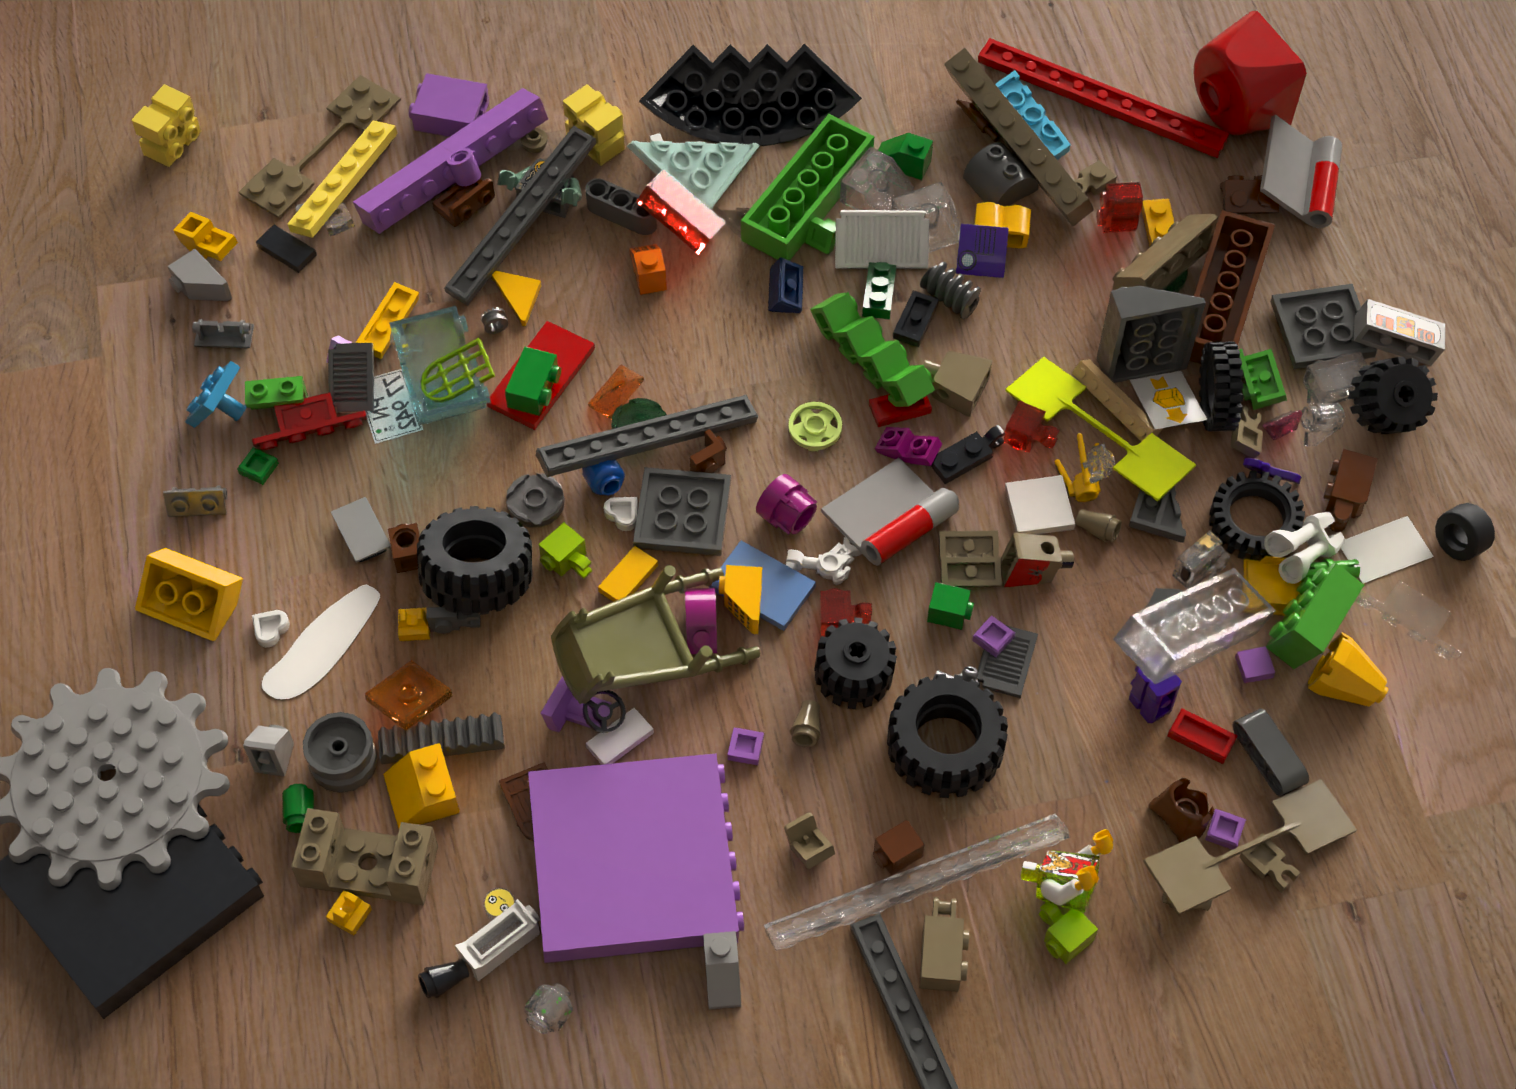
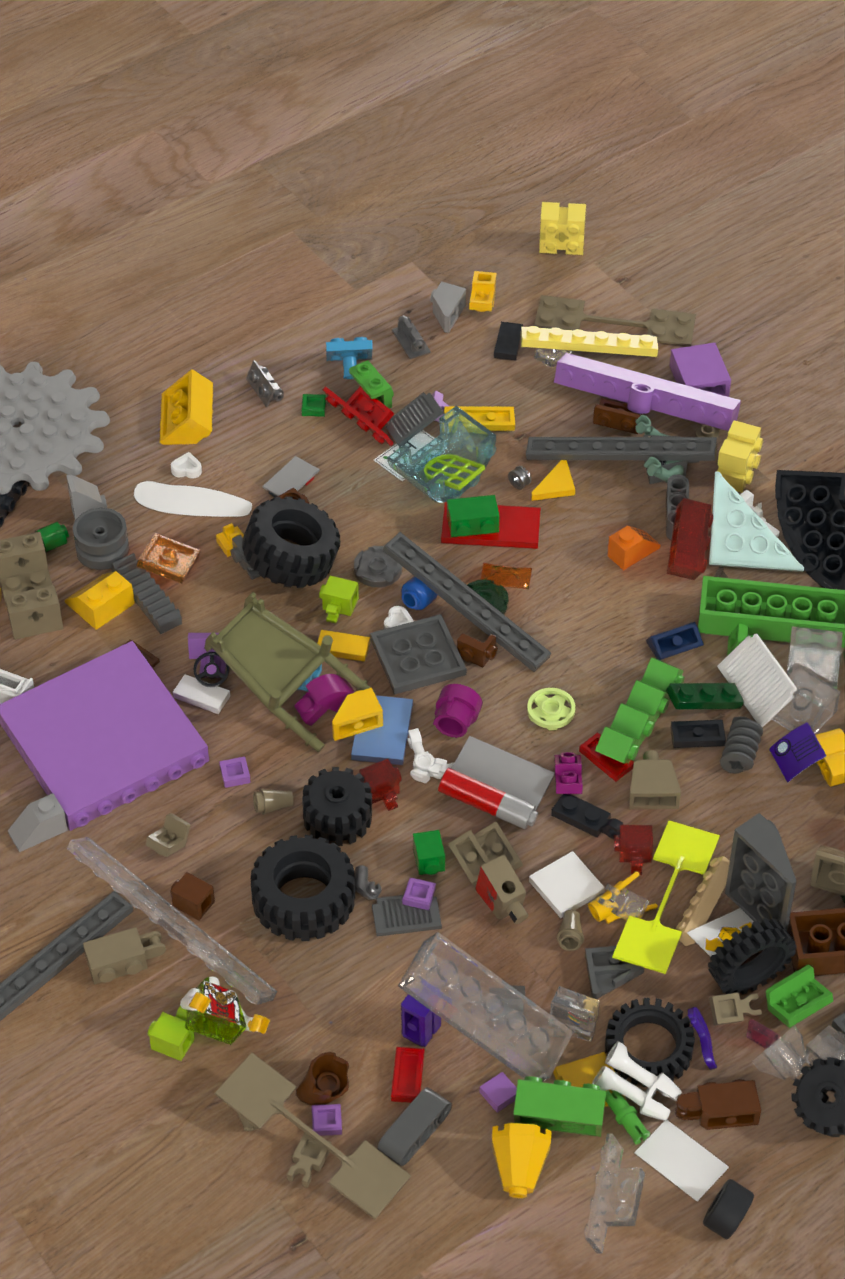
camera: 65 degrees right, 10 degrees down
(497, 902) = (35, 673): light yellow tile -> none

